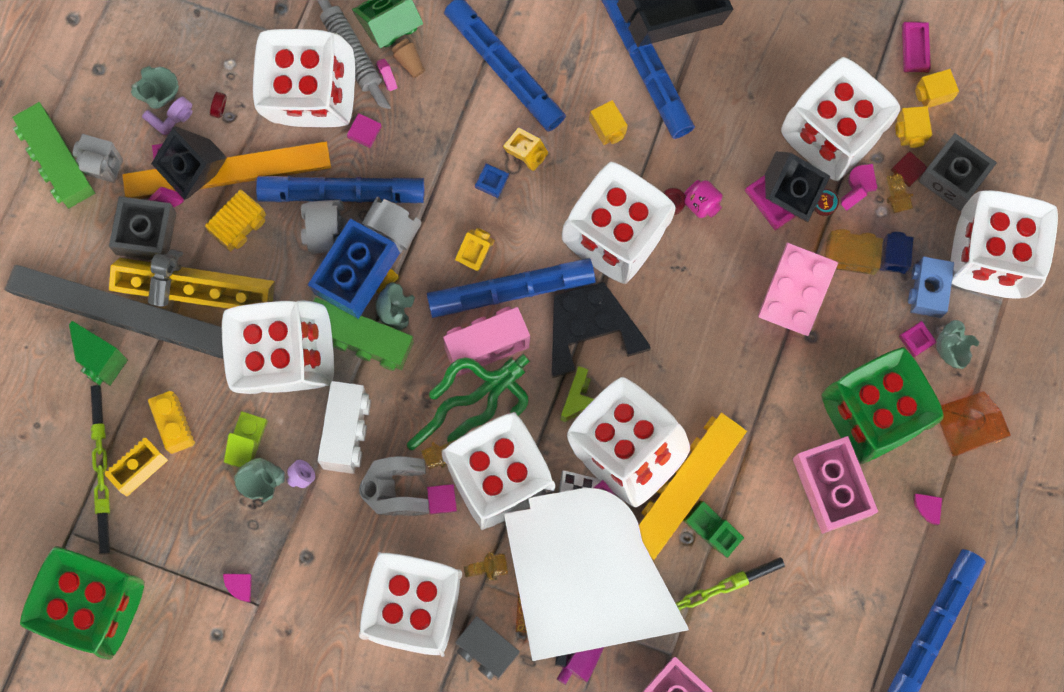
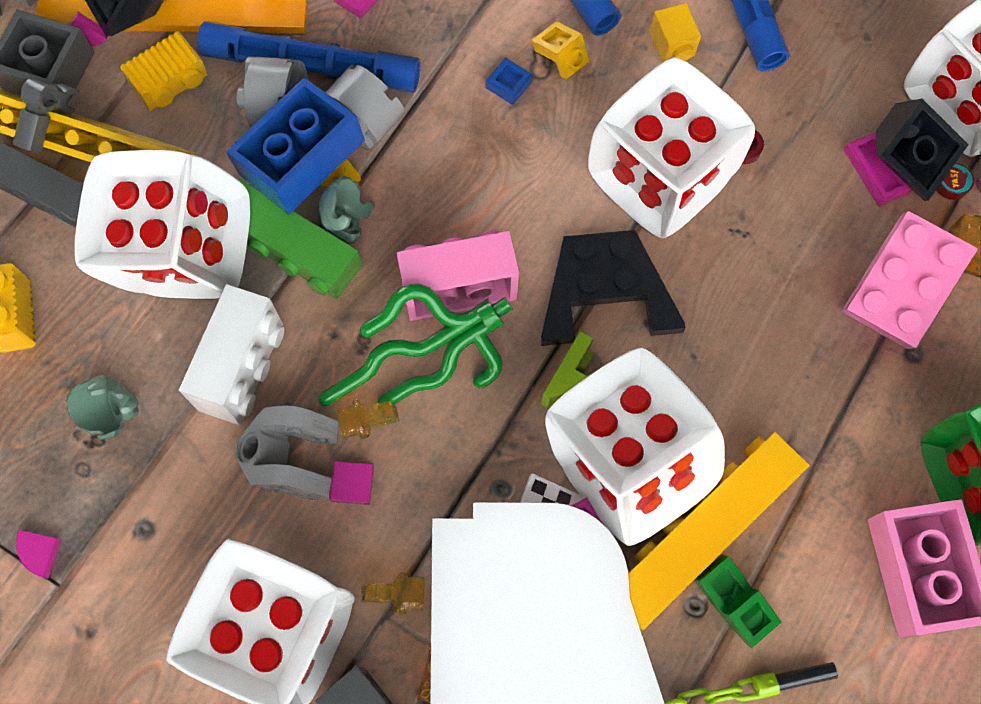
camera: 15 degrees right, 5 degrees down
(245, 440) = (101, 350): lime slope -> none
(300, 474) = (162, 410): lavender tile -> none
(474, 248) = (467, 158): yellow bracket -> none
(498, 469) = (435, 450): white piece -> none
(511, 287) = (510, 215): blue piece -> none
(703, 199) = (788, 146): dark pink head -> none

